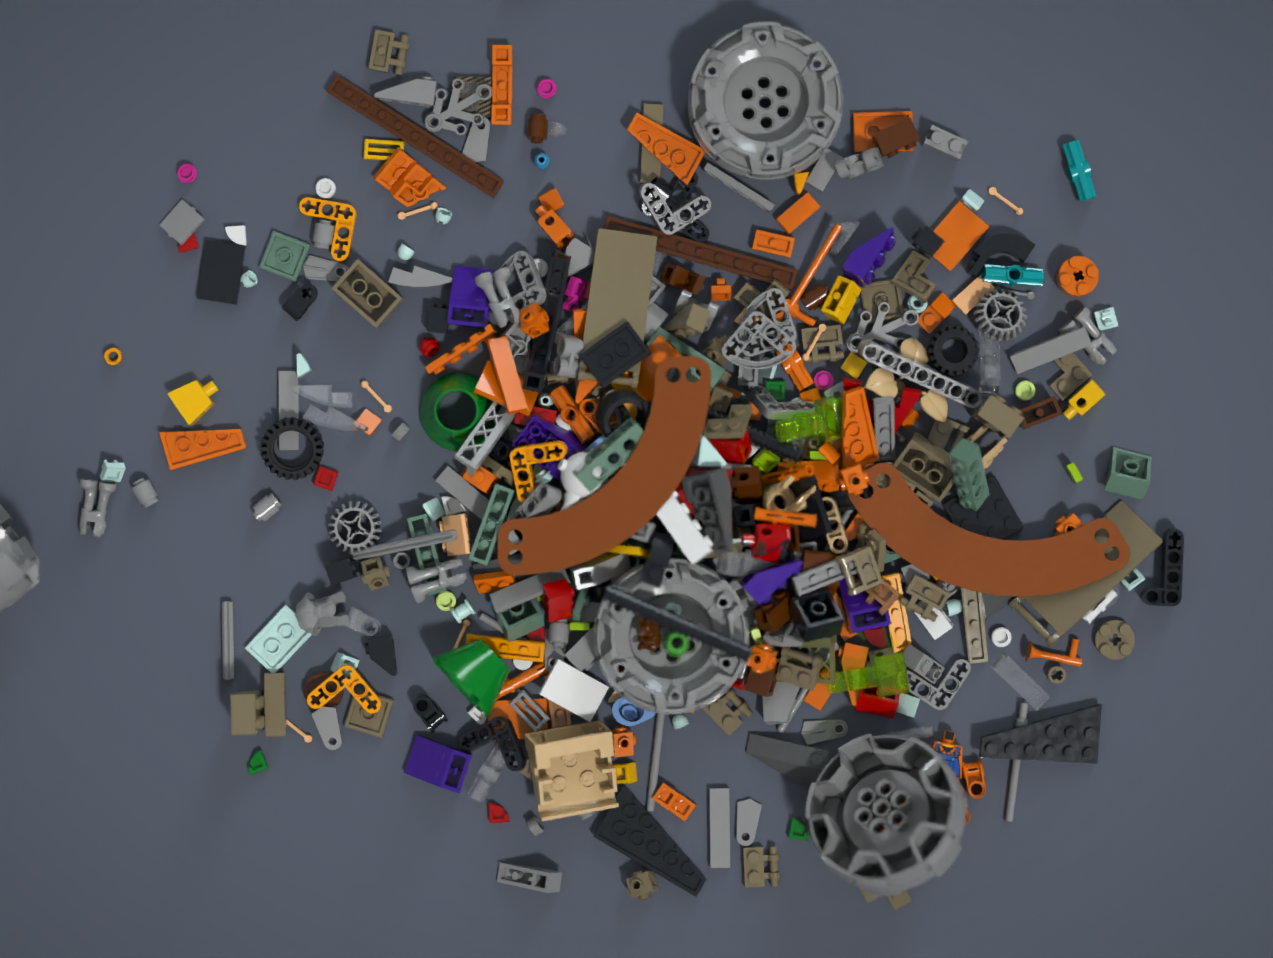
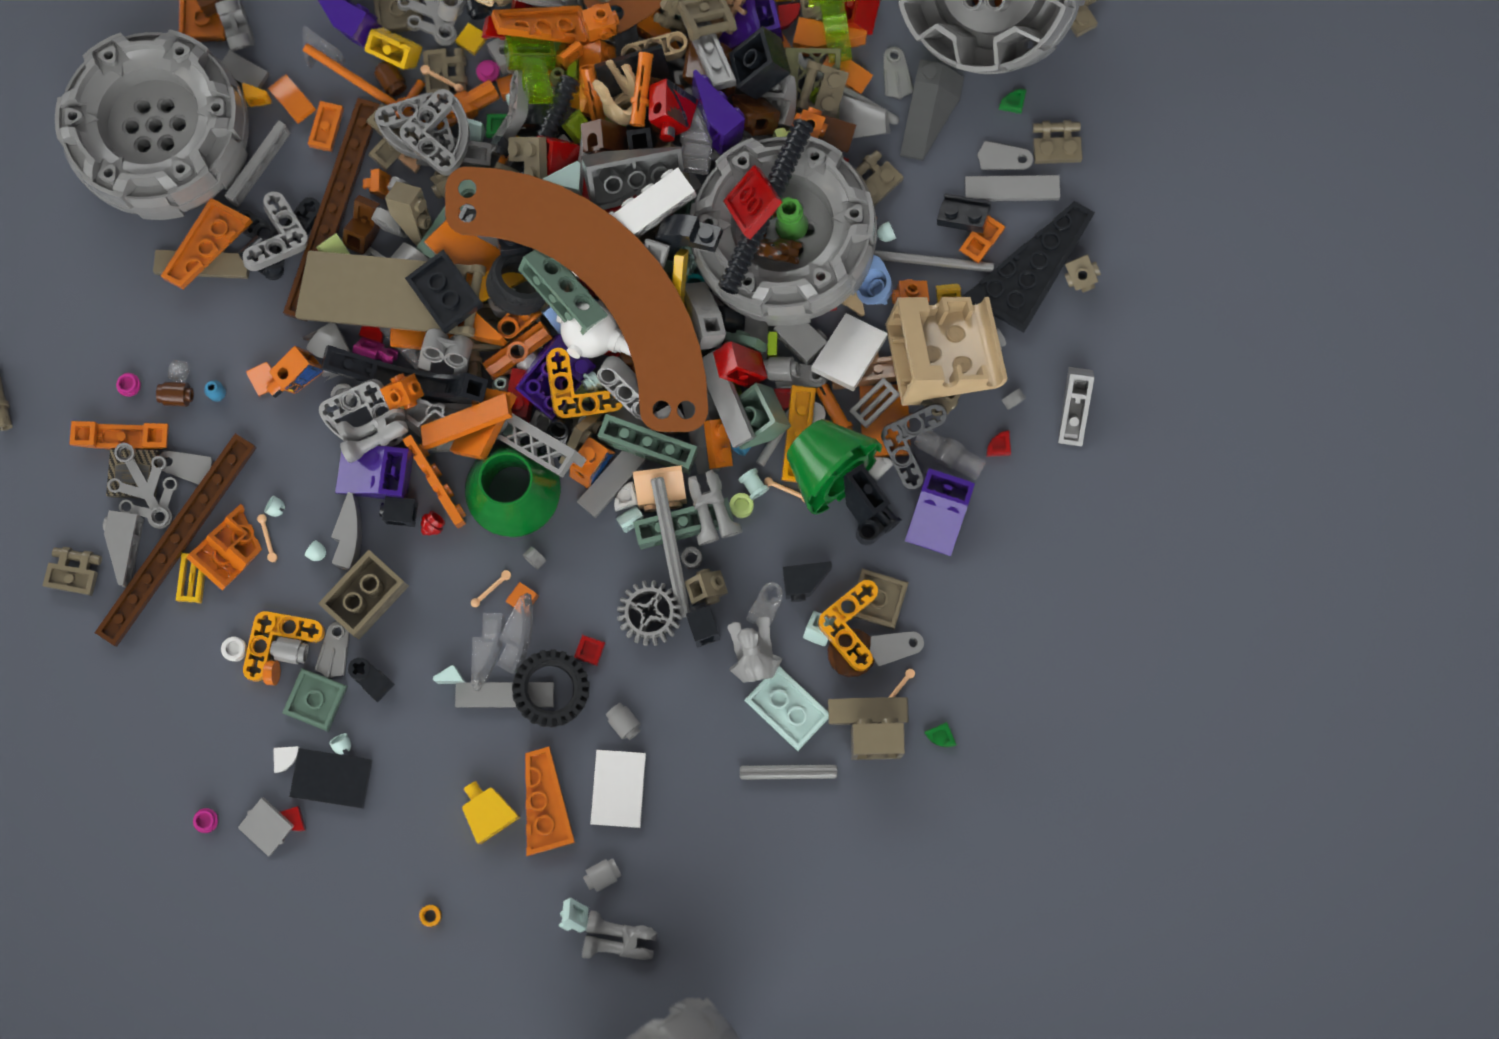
camera: 80 degrees left, 10 degrees down
(214, 504) = (618, 788): none -> white tile
(305, 220) = (271, 672): none -> orange tile
(445, 702) = (863, 494): none -> black slope
(663, 255) = (333, 244): none -> yellowish green tile
(679, 612) = (752, 201): none -> red tile
(695, 786) = (964, 213): none -> black plate

